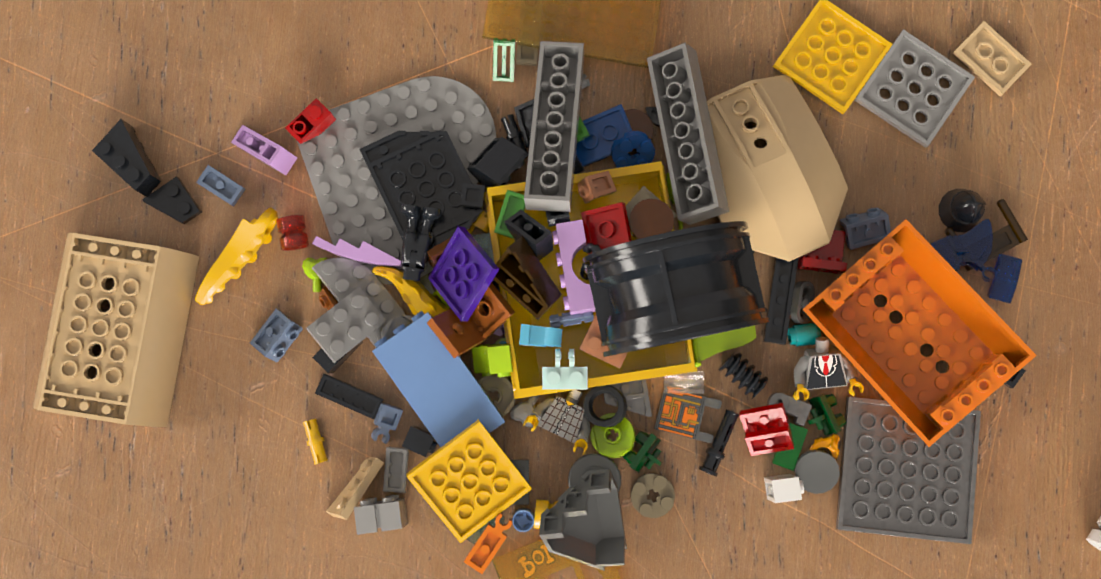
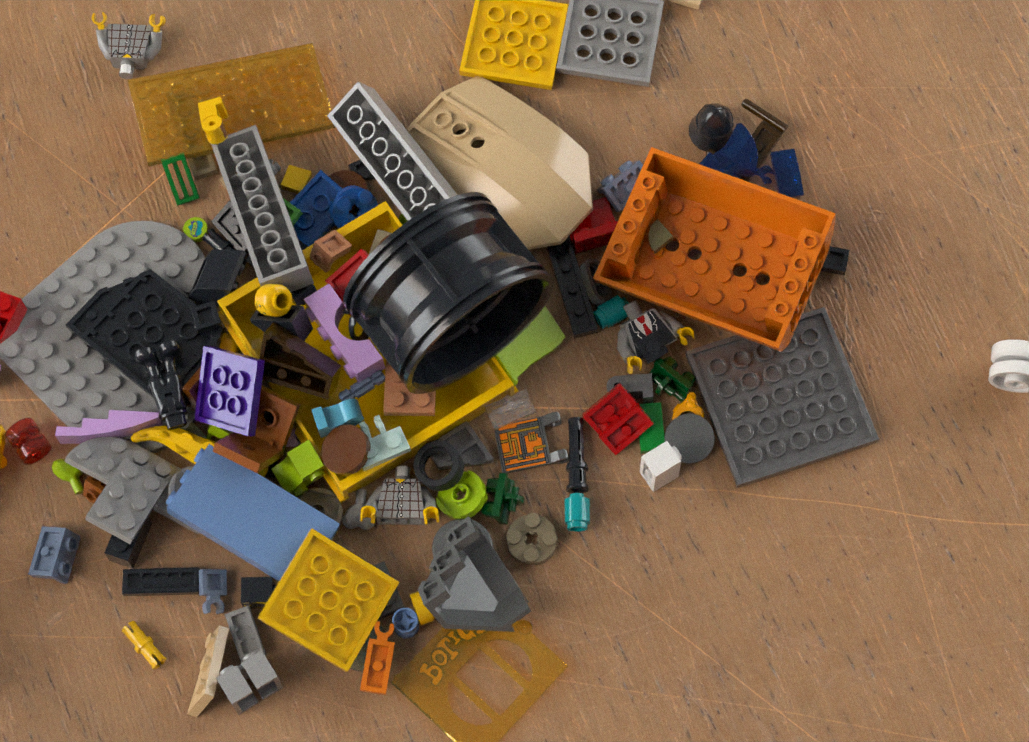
camera: 30 degrees left, 15 degrees down
(499, 108) = (195, 228): none -> lime tile
(512, 204) = (248, 308): bright green tile -> none
(529, 217) = (273, 300): none -> yellow head
(534, 368) = (345, 450): none -> reddish brown tile
(550, 18) = (211, 118): none -> yellow leg
(598, 100) = (295, 179): none -> yellow tile
(698, 491) = (577, 512): none -> teal brick
(744, 374) = (567, 376): black piece -> none
(822, 384) = (651, 347): none -> black plate
(873, 291) = (659, 236): none -> olive tile

